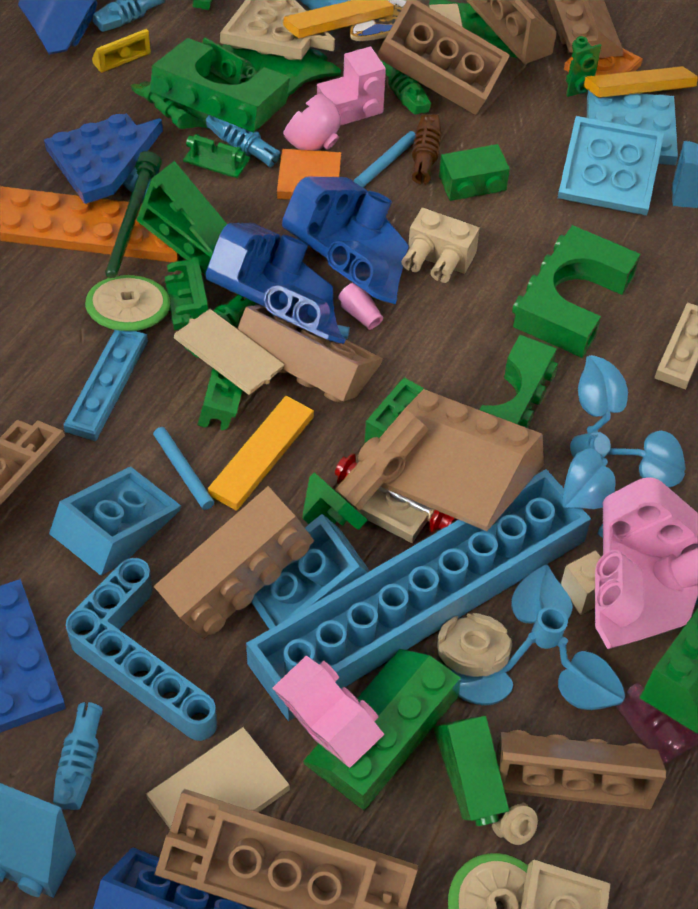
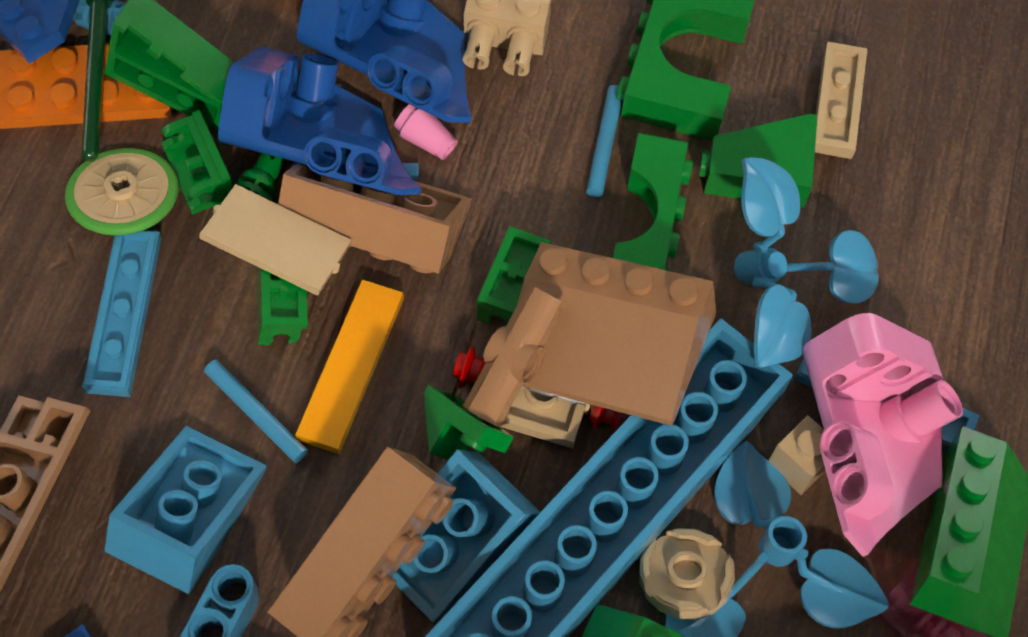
camera: 15 degrees left, 10 degrees up
(494, 342) = (604, 143): none -> dark azure bar
(634, 363) = (784, 142): none -> green slope

